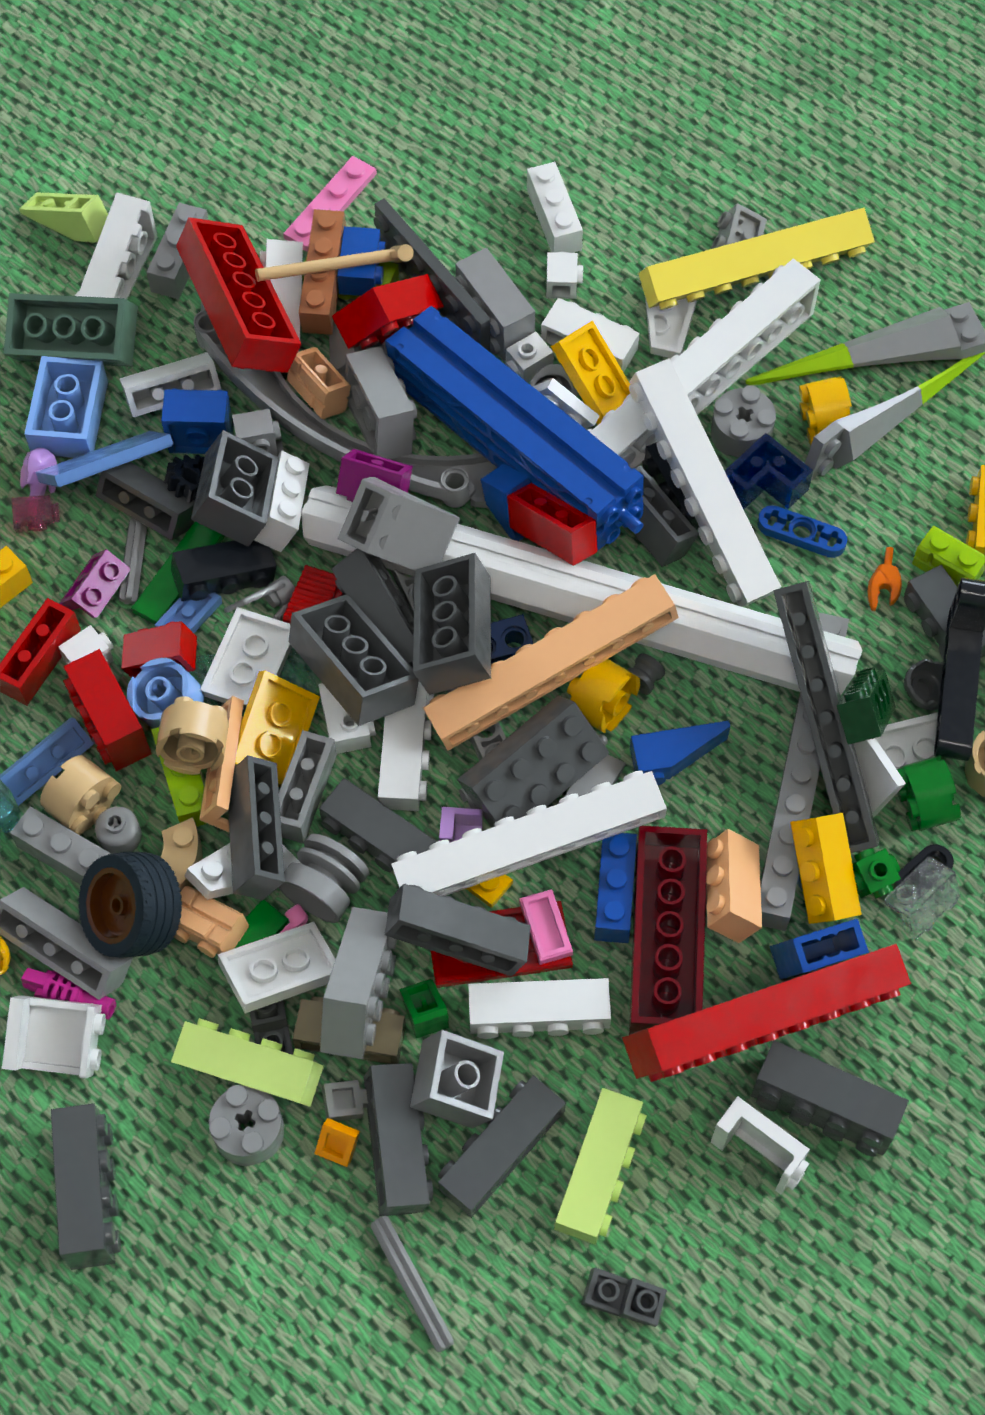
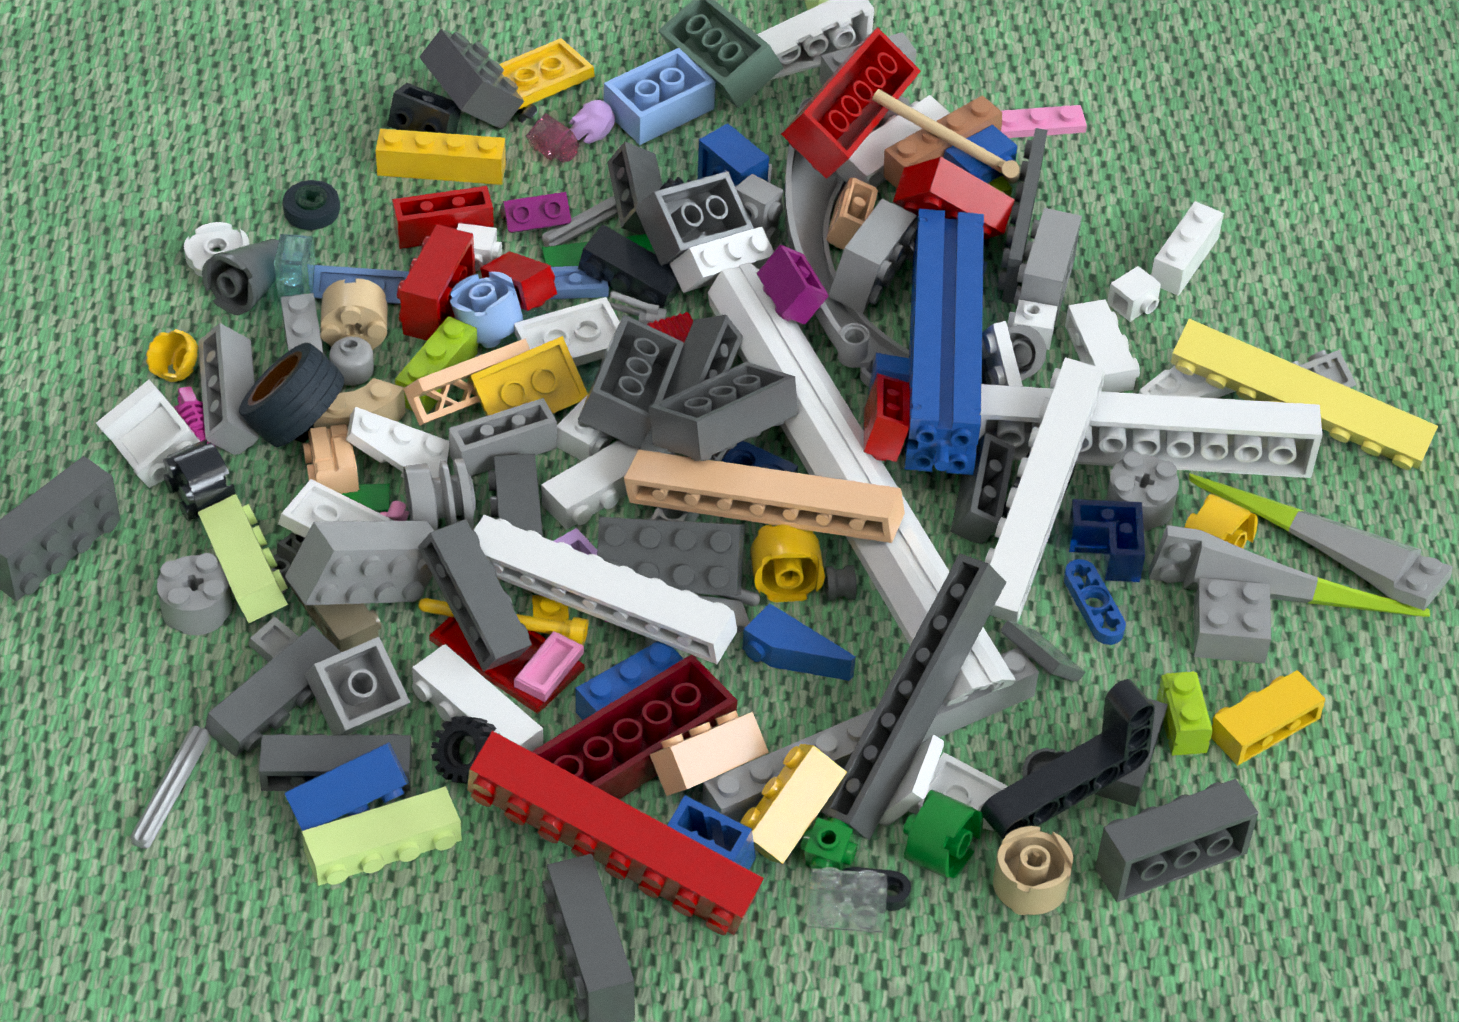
camera: 45 degrees right, 15 degrees down
(104, 458) = (638, 139): medium blue tile -> none
(138, 1036) = (197, 477): none -> black brick
(146, 389) = (762, 136): white brick -> none
(192, 736) = (458, 328): tan brick -> none
(255, 829) = (428, 420): dark grey brick -> none
(337, 1142) = (237, 660): light orange tile -> none
(397, 525) = (764, 316): light grey slope -> none
(425, 1008) = (401, 639): green slope -> none
(528, 884) = (573, 629): none -> yellow piece
(545, 1159) = (348, 788): none -> blue brick
(582, 1064) = (450, 742): none -> black tyre
(592, 369) = (1057, 337): yellow plate -> none
(624, 1297) = (290, 930): dark grey slope -> none
(765, 1138) = (501, 898): white panel -> none
(838, 601) = (1042, 651): none -> dark grey tile
(866, 706) = (959, 720): dark green brick -> none
(885, 577) = (1107, 681): orange hand -> none
(899, 465) = (1232, 620): none -> light grey brick

